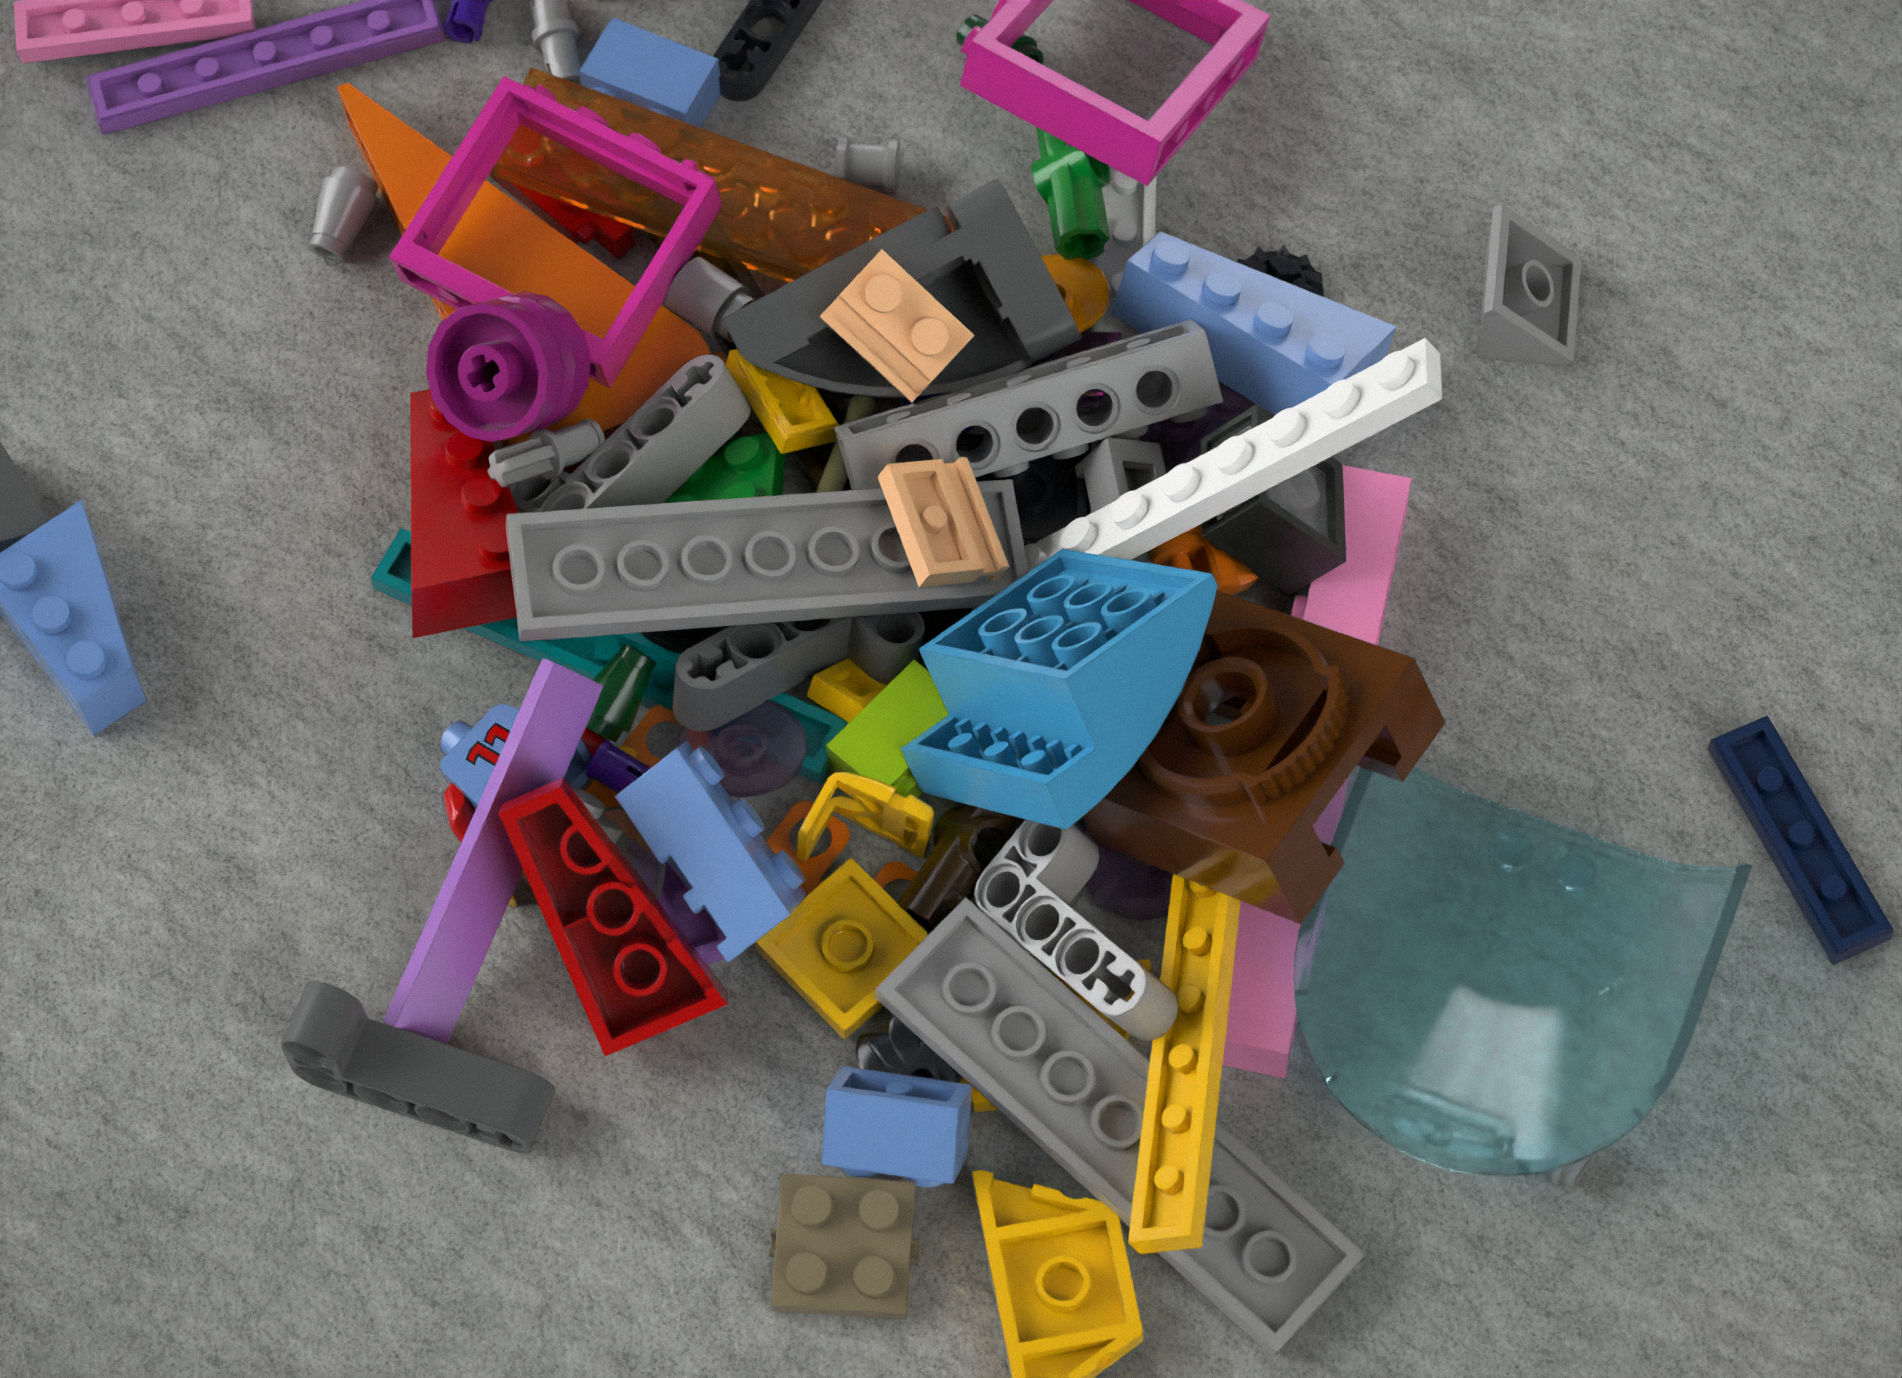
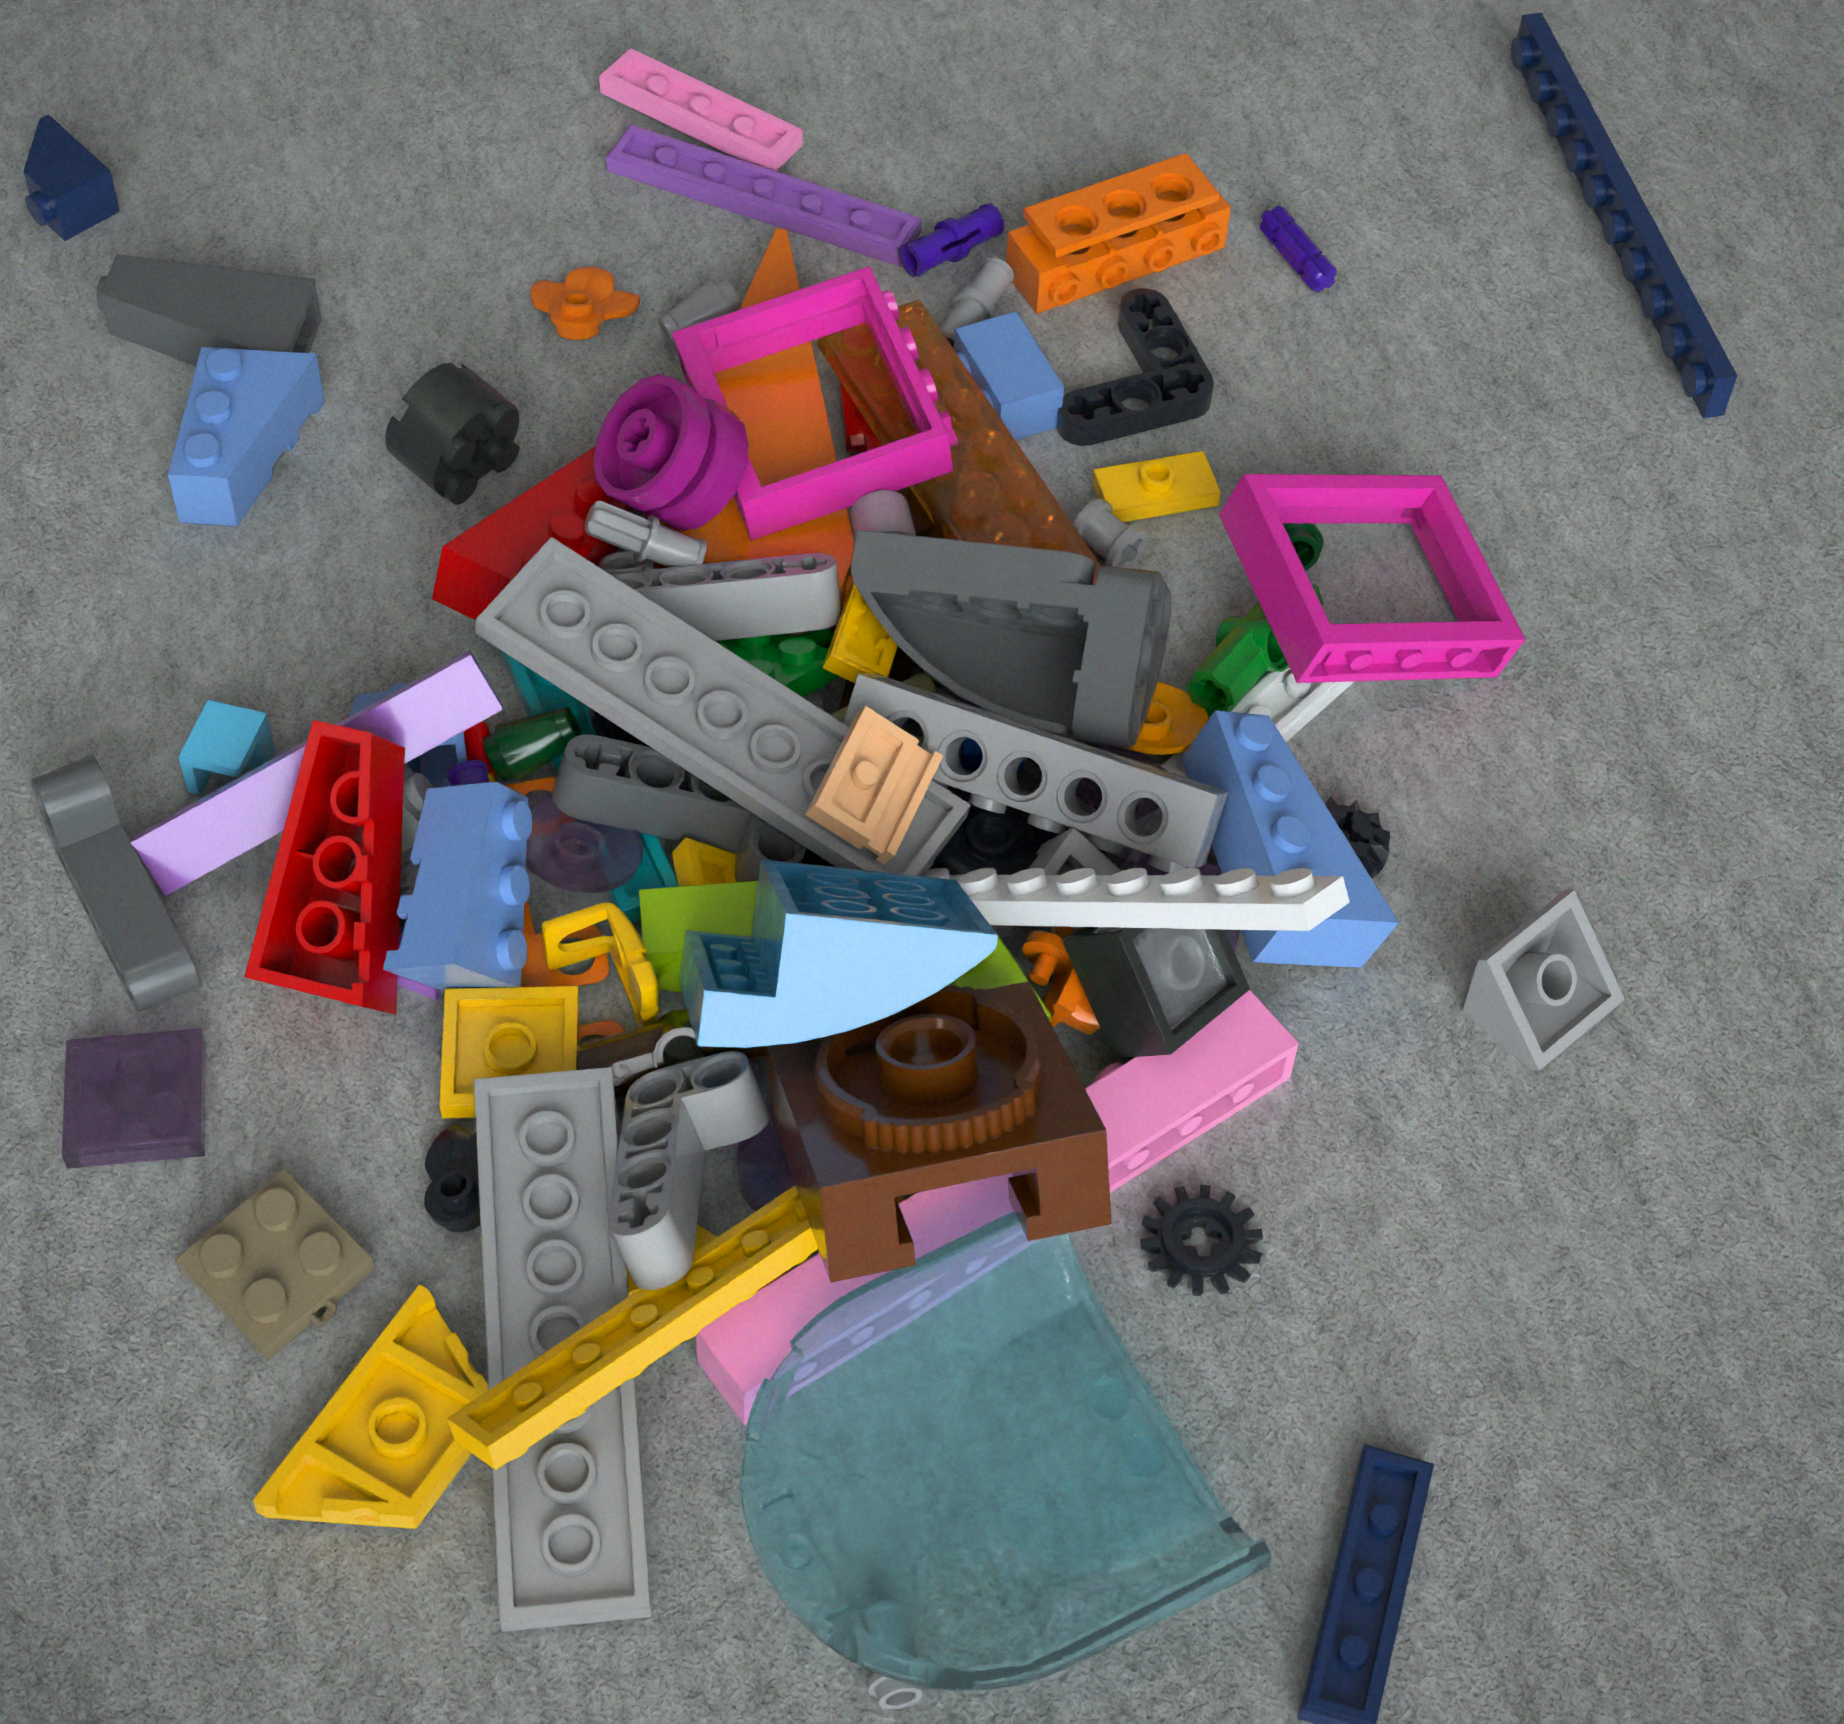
camera: 35 degrees right, 10 degrees down
(222, 276) = (582, 302): none -> orange plate
(267, 478) = (454, 431): none -> pearl dark grey brick
(369, 888) = (224, 743): none -> medium azure panel
(599, 1216) = (134, 1098): none -> clear purple plate
(856, 89) = (1158, 486): none -> yellow plate
(896, 326) = (982, 625): light nougat plate -> none
(896, 1126) = (396, 1200): medium blue brick -> none
(1490, 682) = (1217, 1222): none -> black gear

